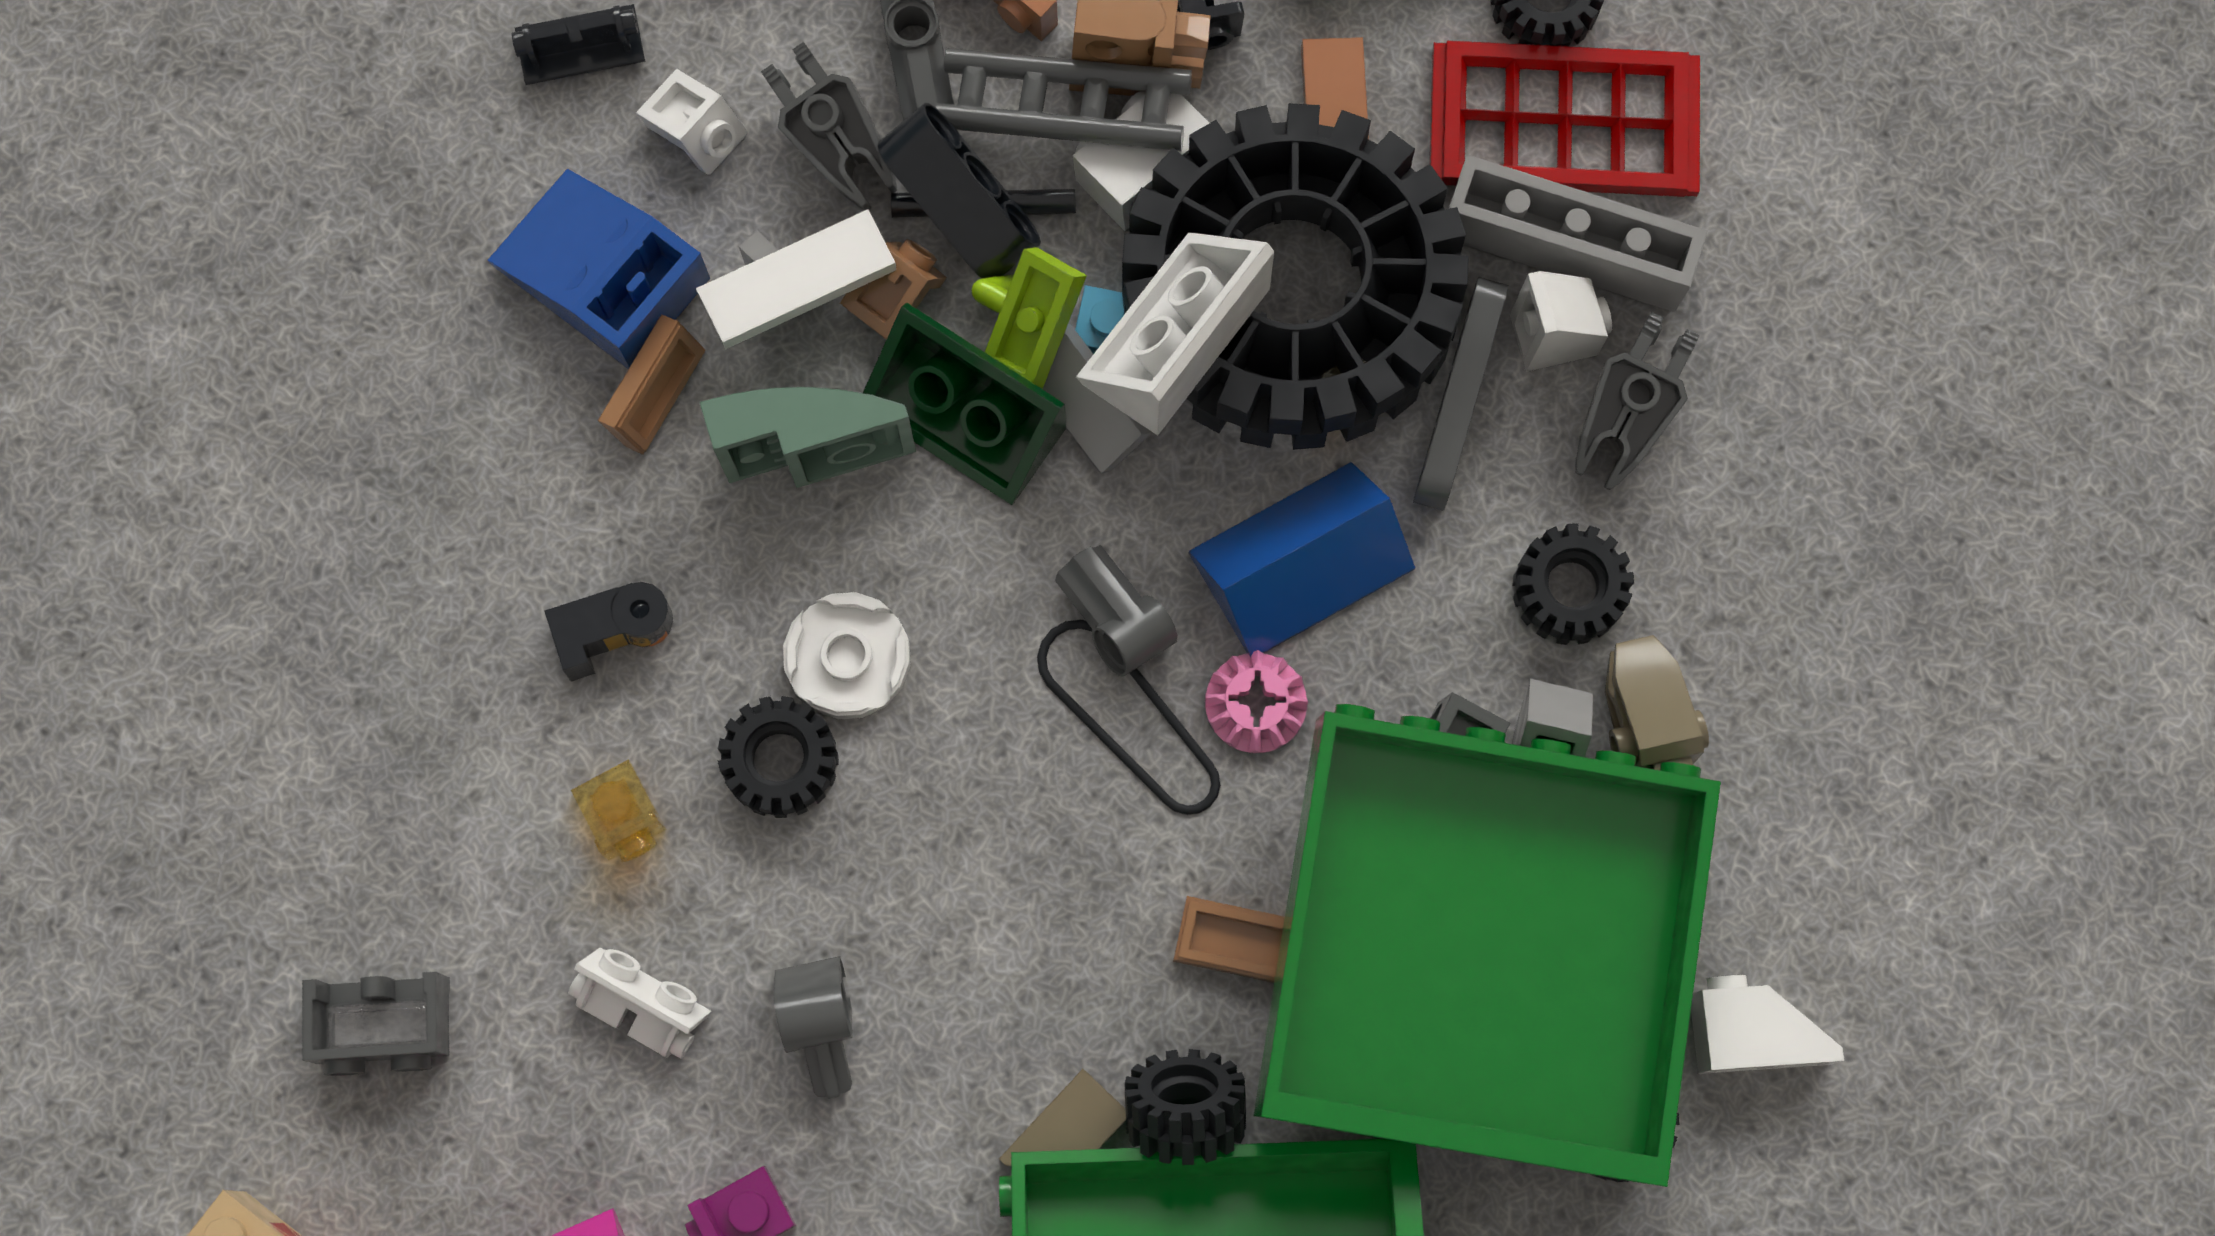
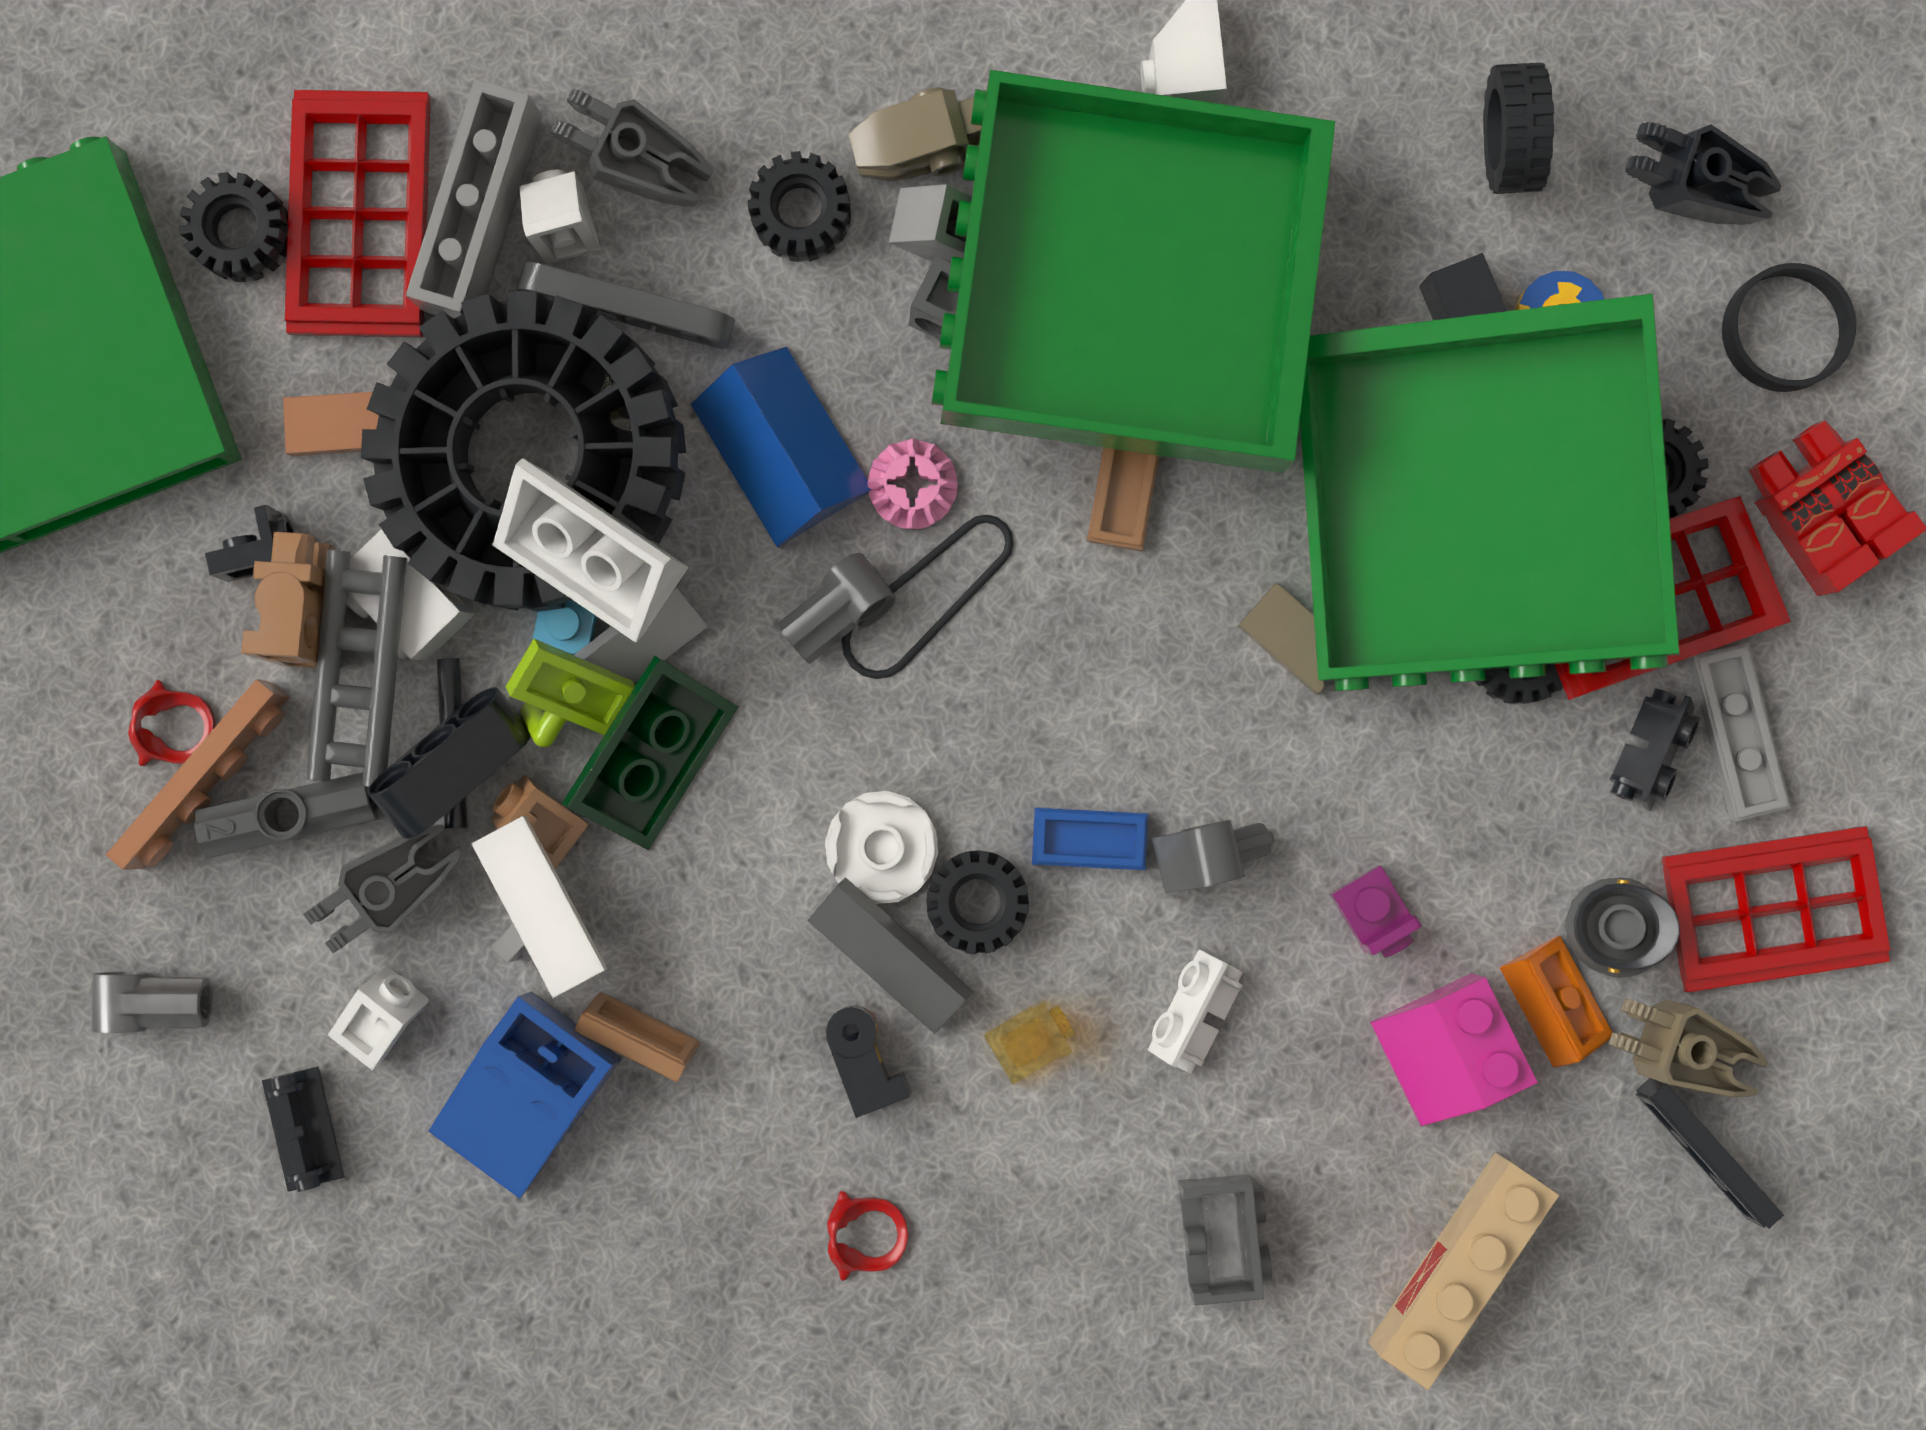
camera: 85 degrees left, 10 degrees up
(392, 608) = (850, 1259): none -> red piece
(724, 658) = (890, 955): none -> dark grey tile
(807, 429) = (681, 891): sand green slope -> none
(843, 888) = (1090, 839): none -> blue tile
(1185, 1107) = (1297, 533): black tyre -> none

